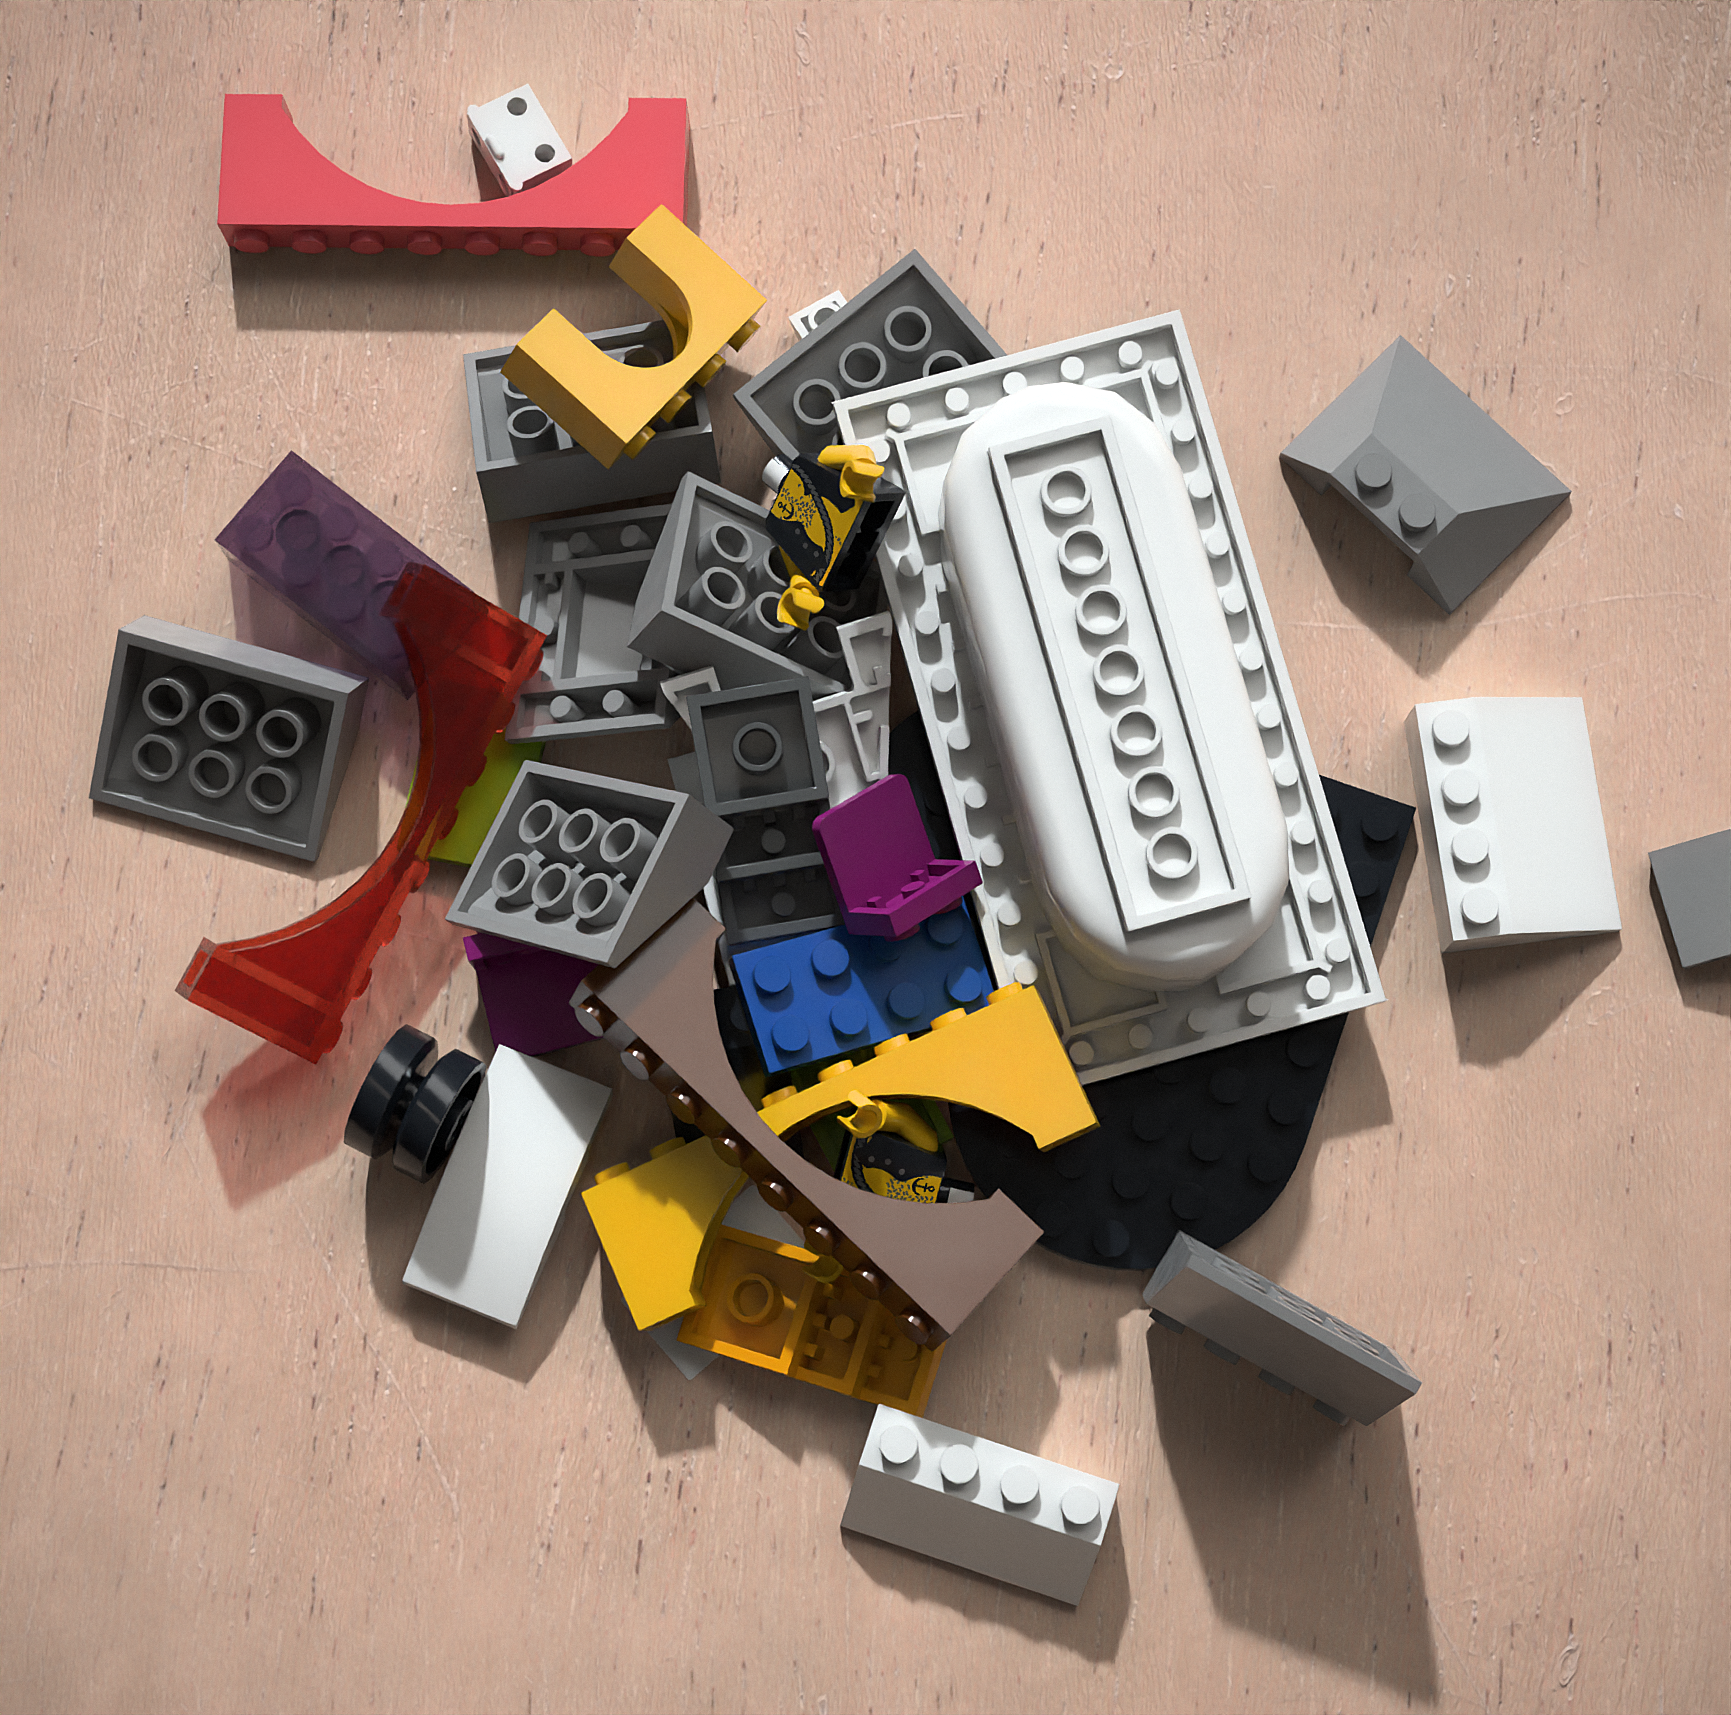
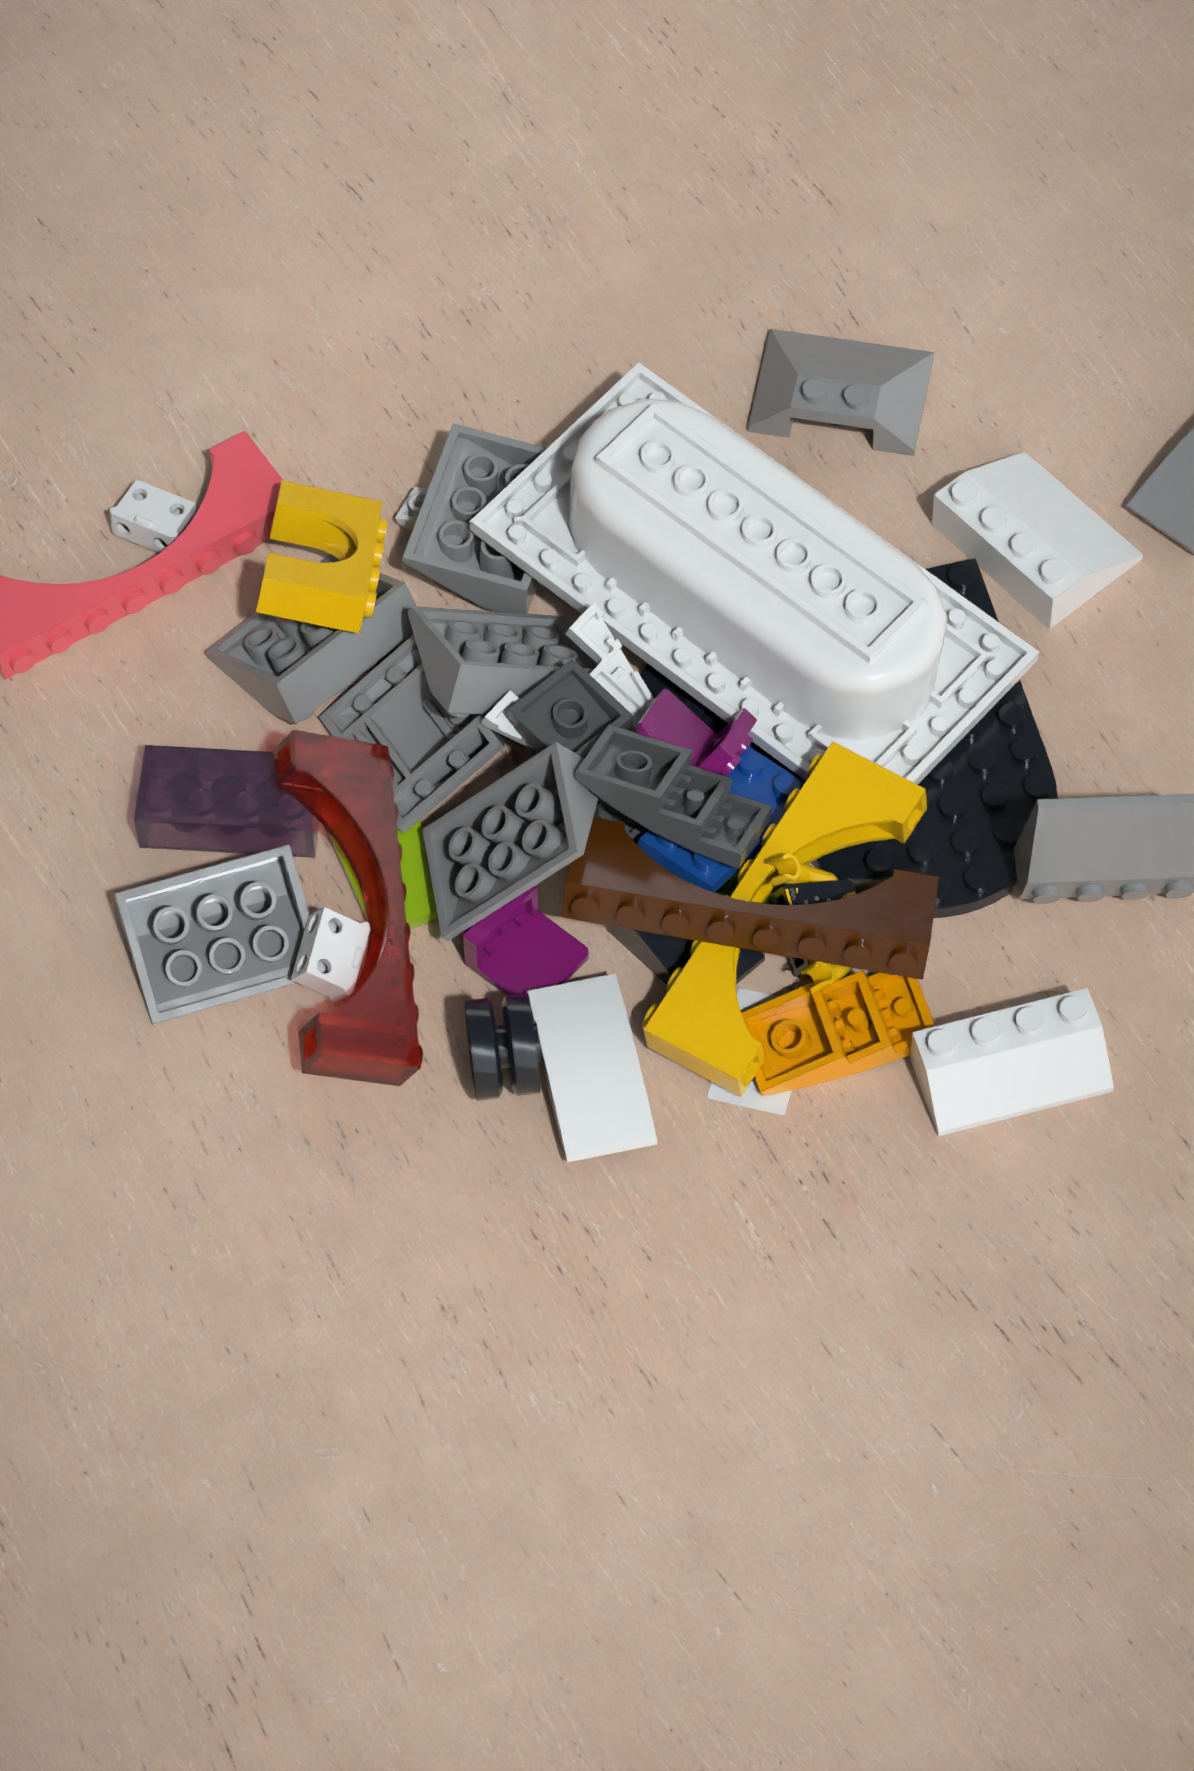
camera: 35 degrees left, 20 degrees down
(322, 850) = (331, 953): none -> white piece
(796, 936) = (671, 797): none -> dark grey slope
(827, 522) = (516, 578): torso -> none

